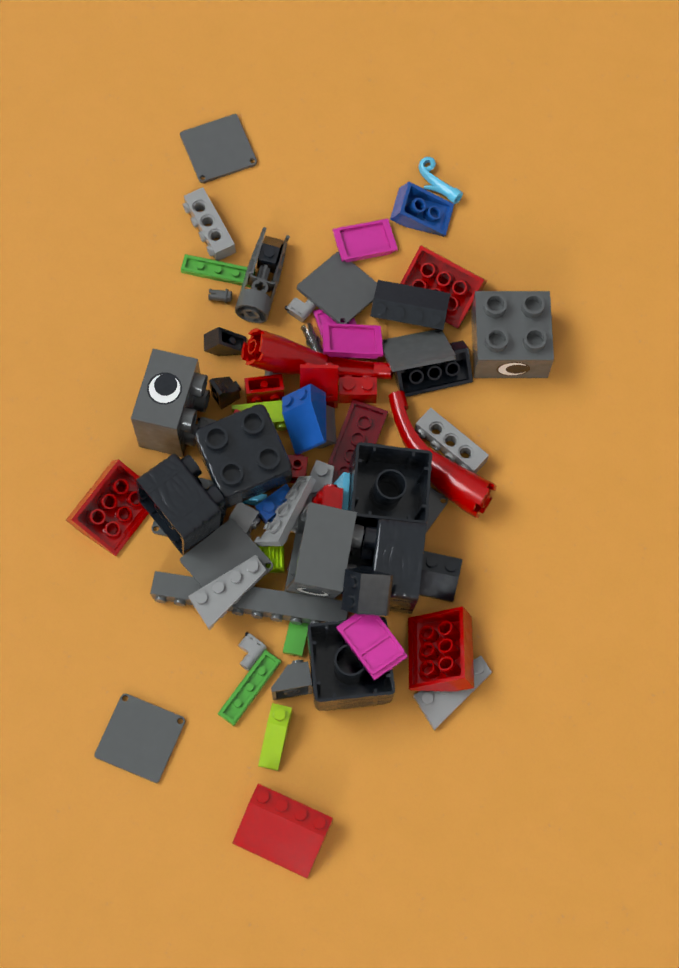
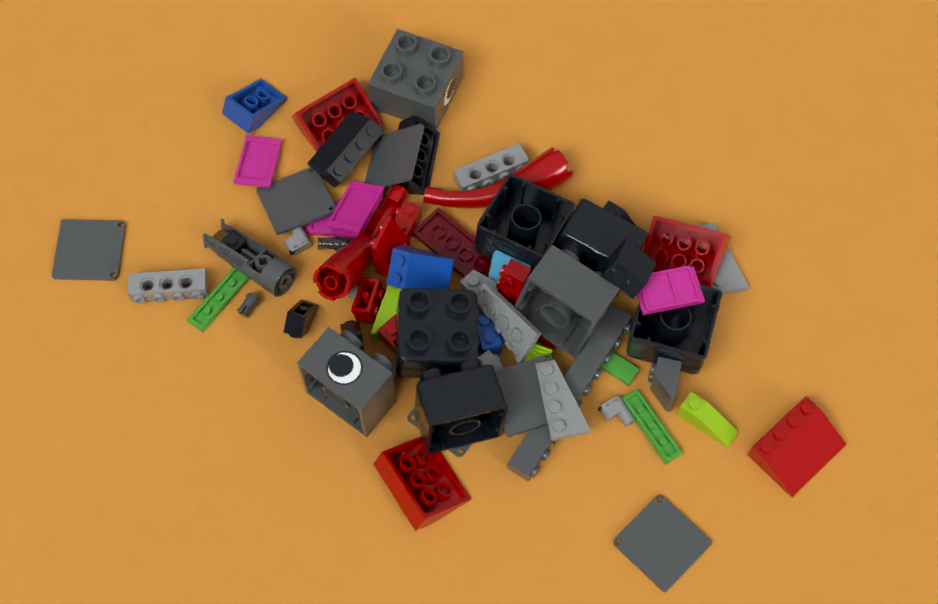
camera: 65 degrees left, 5 degrees down
(439, 186) = (234, 83): medium azure plant -> none

